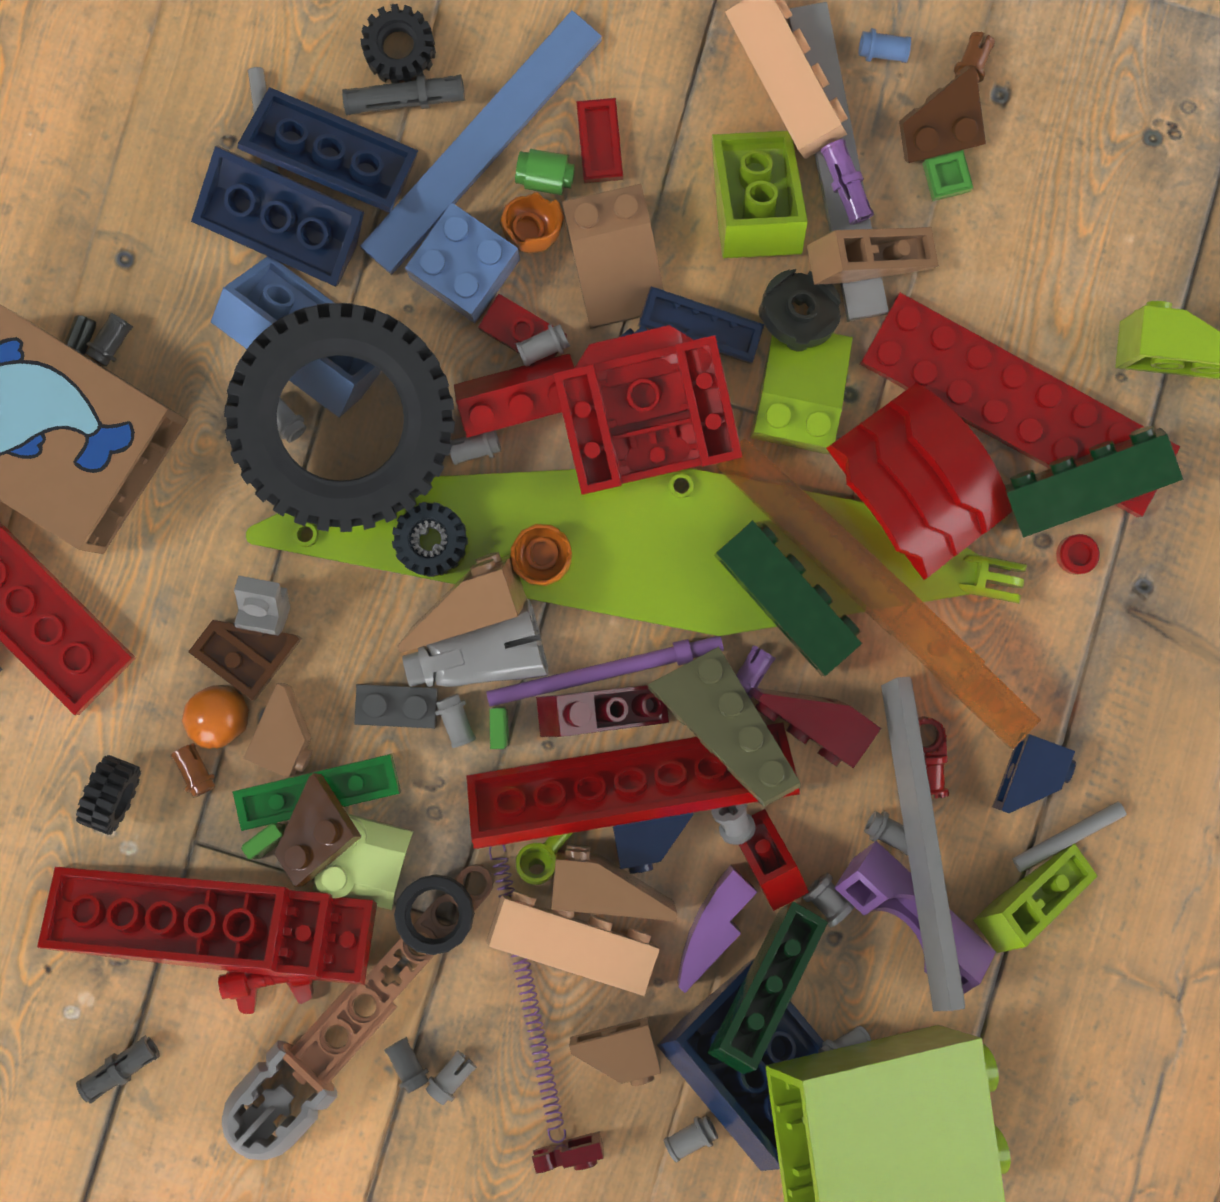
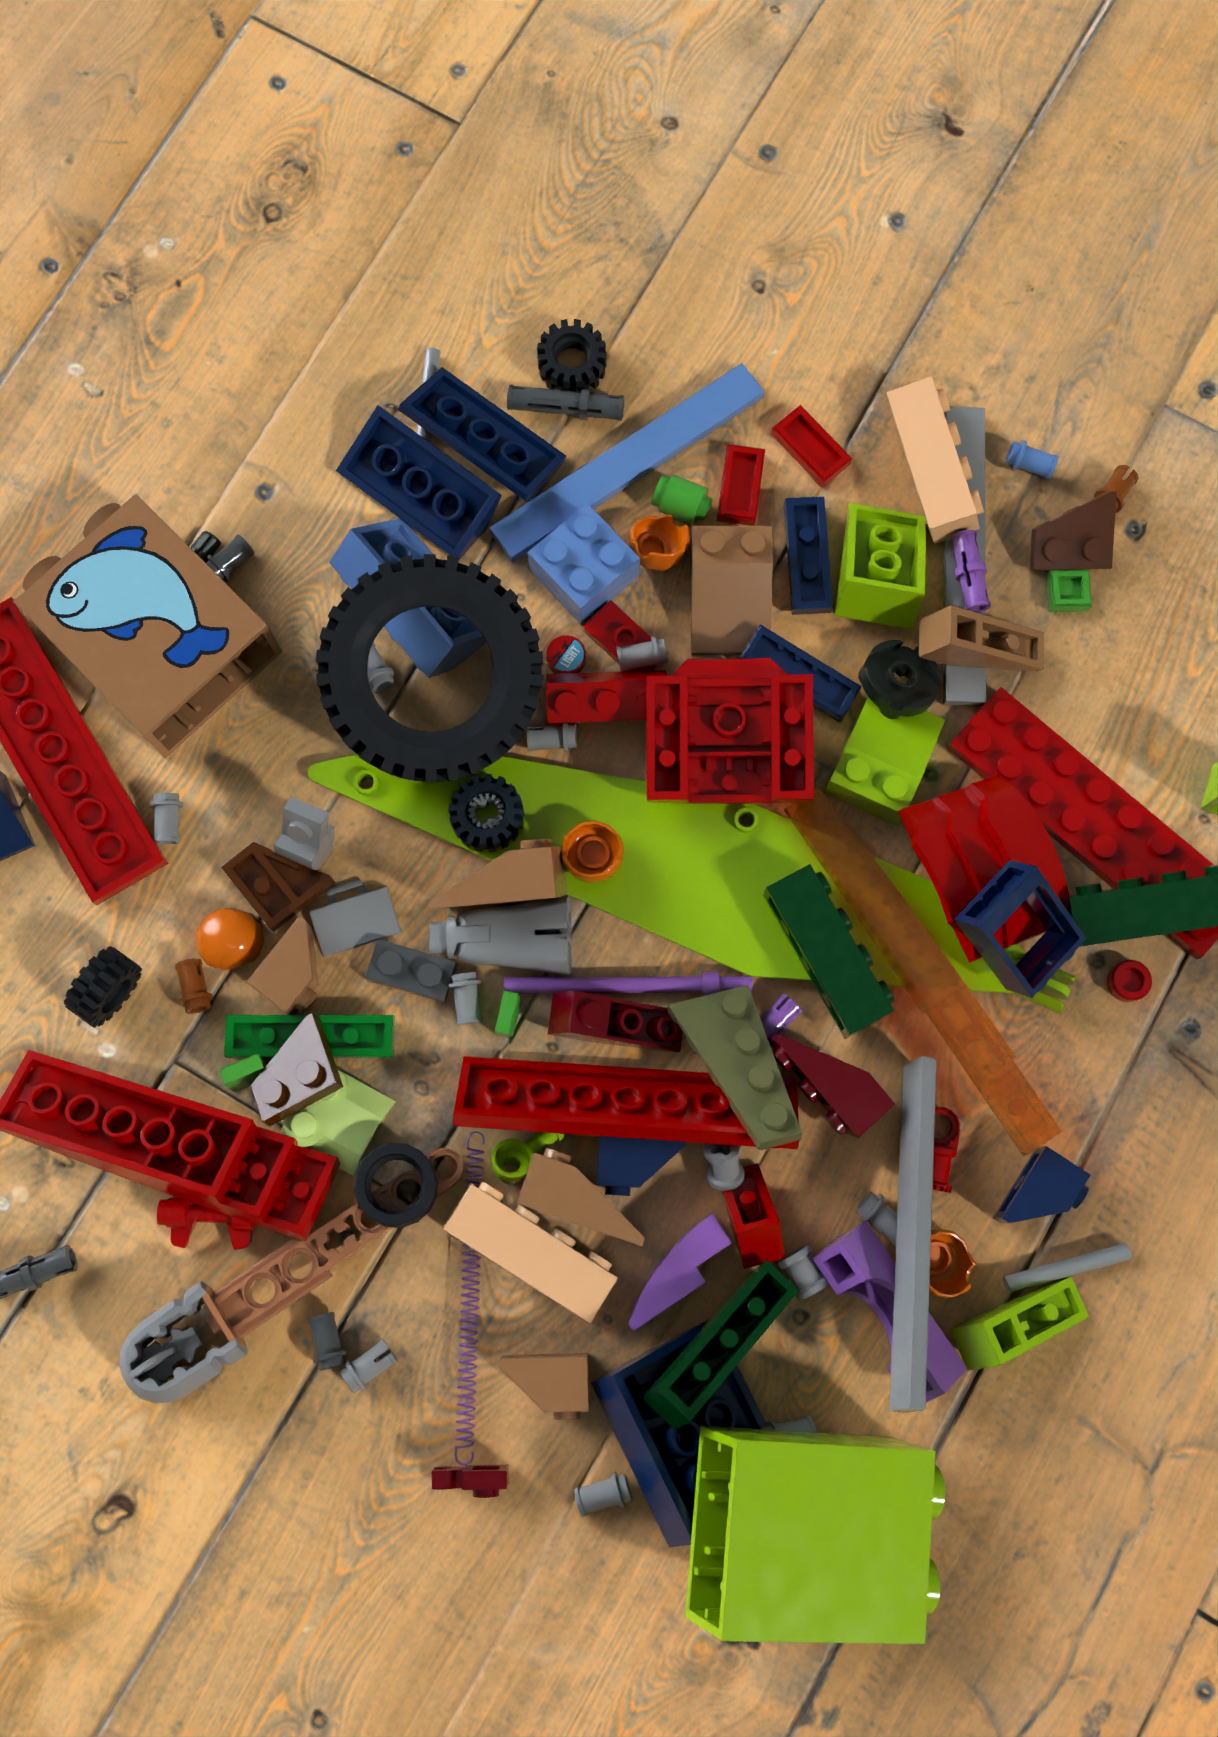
camera: 15 degrees right, 10 degrees down
(121, 614) = (166, 818): none -> light grey pin
(329, 668) = (354, 919): none -> light grey piece
(468, 360) = (566, 655): none -> tile
(661, 82) = (811, 446): none -> red tile
(683, 200) = (808, 555): none -> dark blue plate
(940, 523) = (997, 903): none -> dark blue window
(960, 862) = (949, 1264): none -> orange hair

